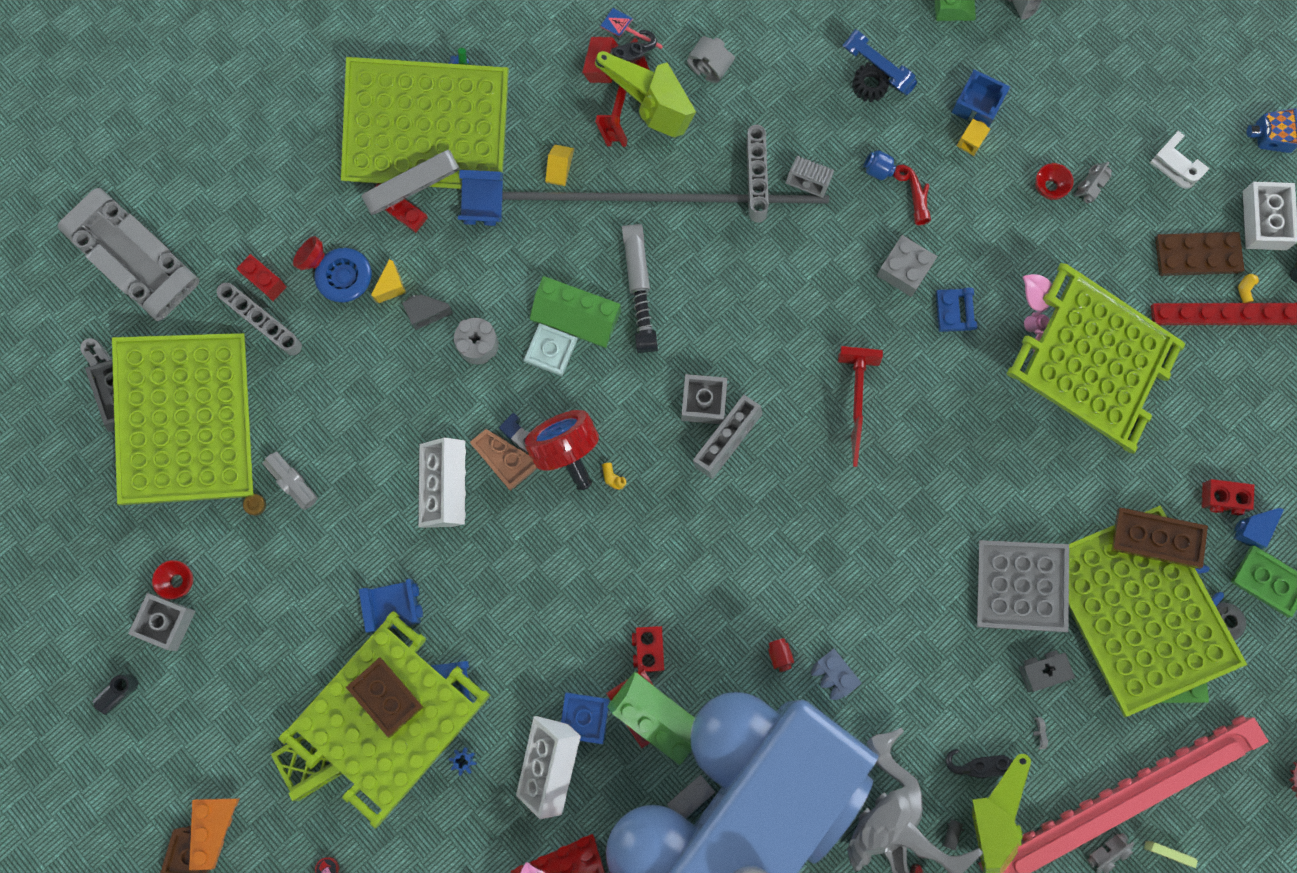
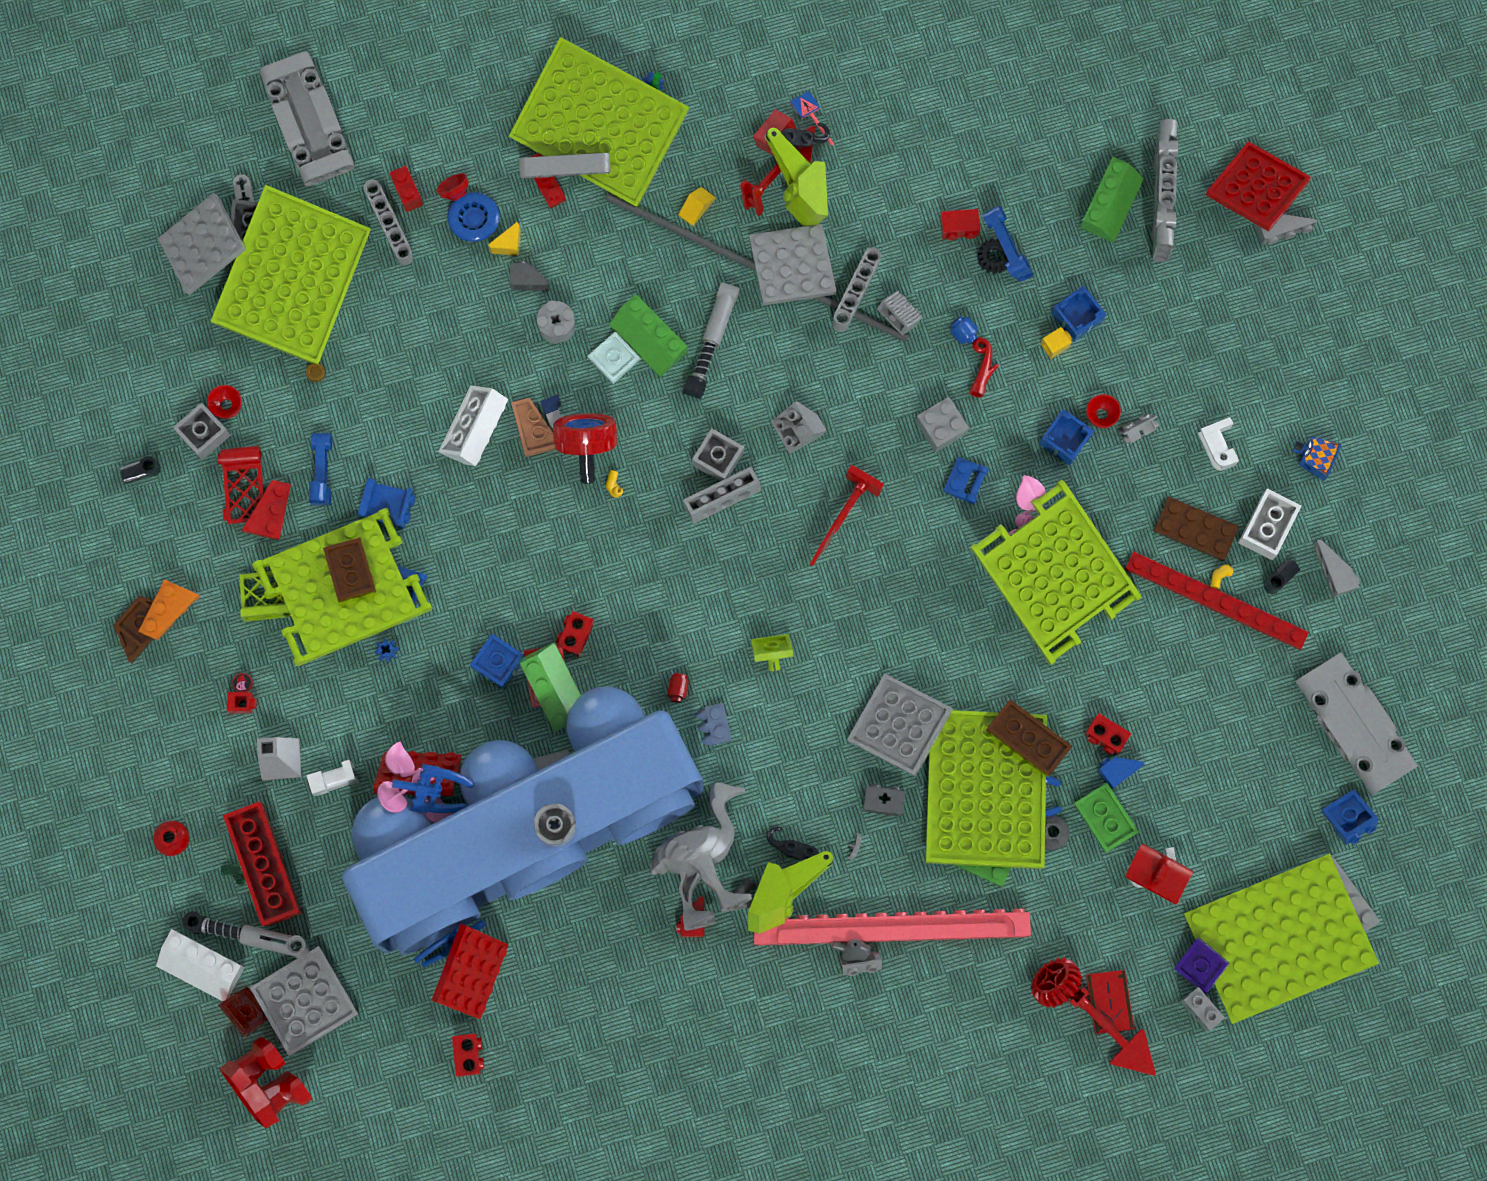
camera: 20 degrees right, 0 degrees up
(74, 428) = (201, 243): none -> light grey plate
(214, 633) = (235, 460): none -> red piece
(272, 674) = (269, 513): none -> red wing
(290, 480) = (353, 366): light grey piece -> none
(314, 627) = (318, 490): none -> blue piece
(481, 197) = (617, 204): blue panel -> none
(547, 767) = (450, 683): white slope -> none
(681, 178) = (792, 264): none -> light grey plate
(710, 59) = (866, 174): light grey brick -> none
(767, 333) = (798, 427): none -> light grey slope
(823, 66) = (960, 224): none -> red brick
(857, 570) = (772, 649): none -> lime tile
(1032, 222) = (1066, 437): none -> blue container
(1100, 847) = (853, 951): none -> dark grey piece
(1171, 854) = (907, 984): yellowish green tile -> none

